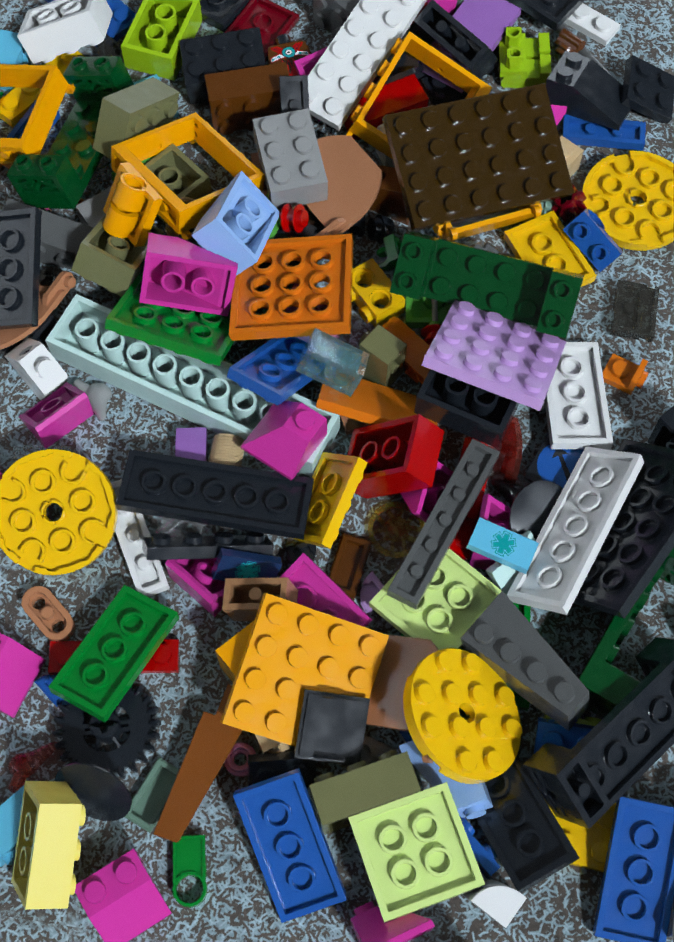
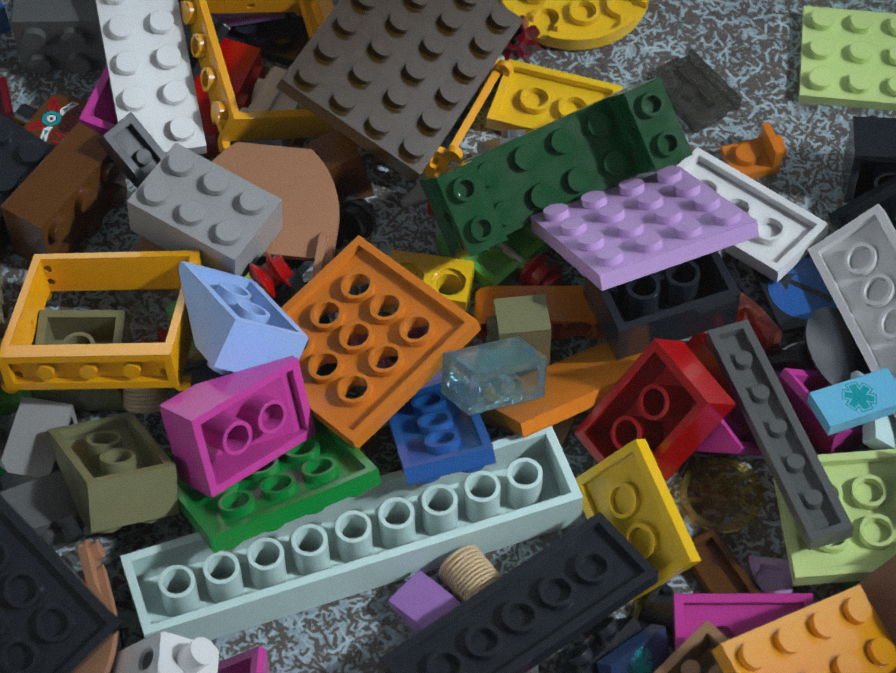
camera: 45 degrees left, 10 degrees down
(98, 396) = (277, 660): light grey animal -> none
(131, 206) = (91, 401): light orange plate -> none
(286, 437) = (532, 490): dark pink slope -> none
(391, 251) = (401, 229): green tile -> none
(593, 241) = (583, 55): blue plate -> none

